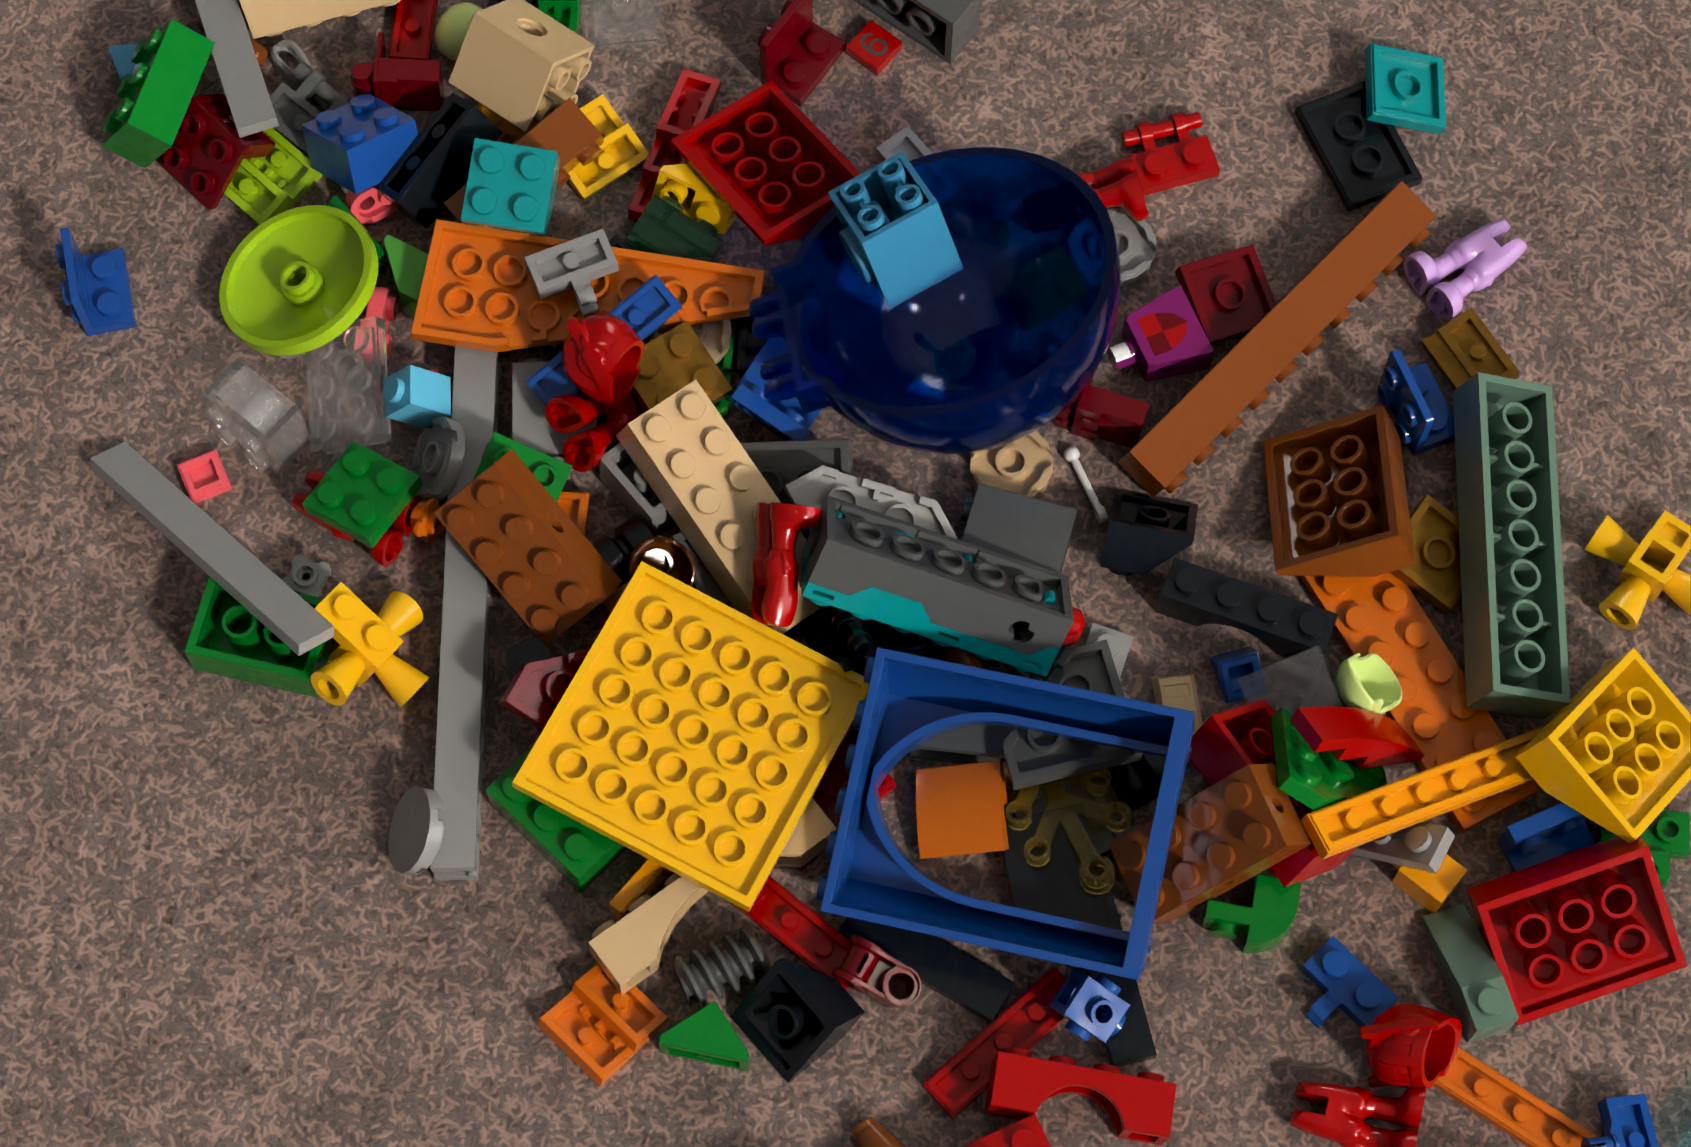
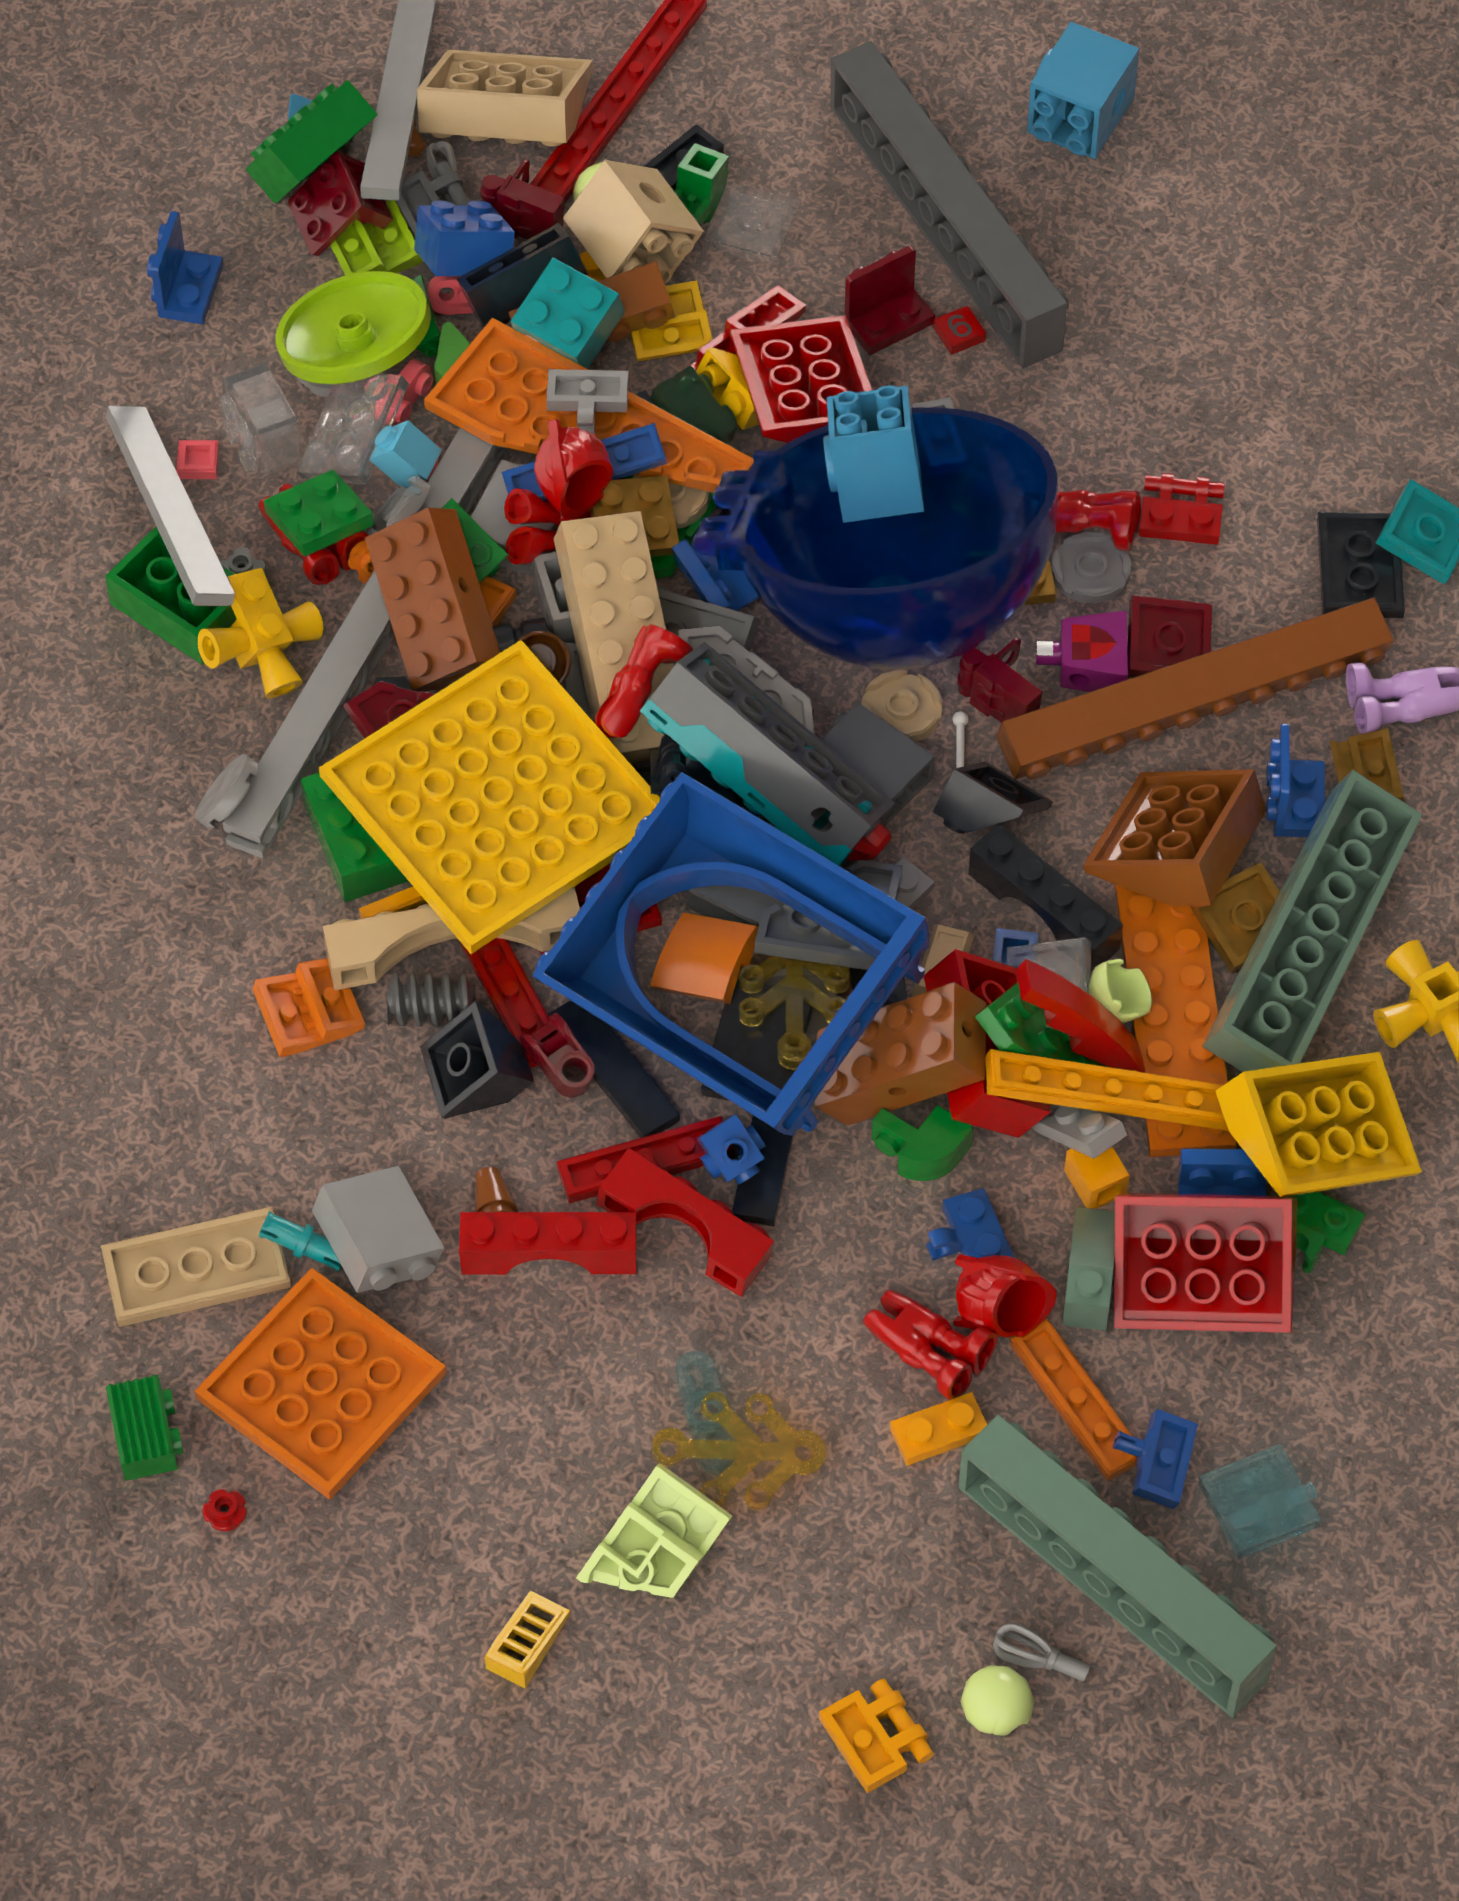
camera: 25 degrees right, 10 degrees down
(706, 1039) = (385, 1050): green slope -> none

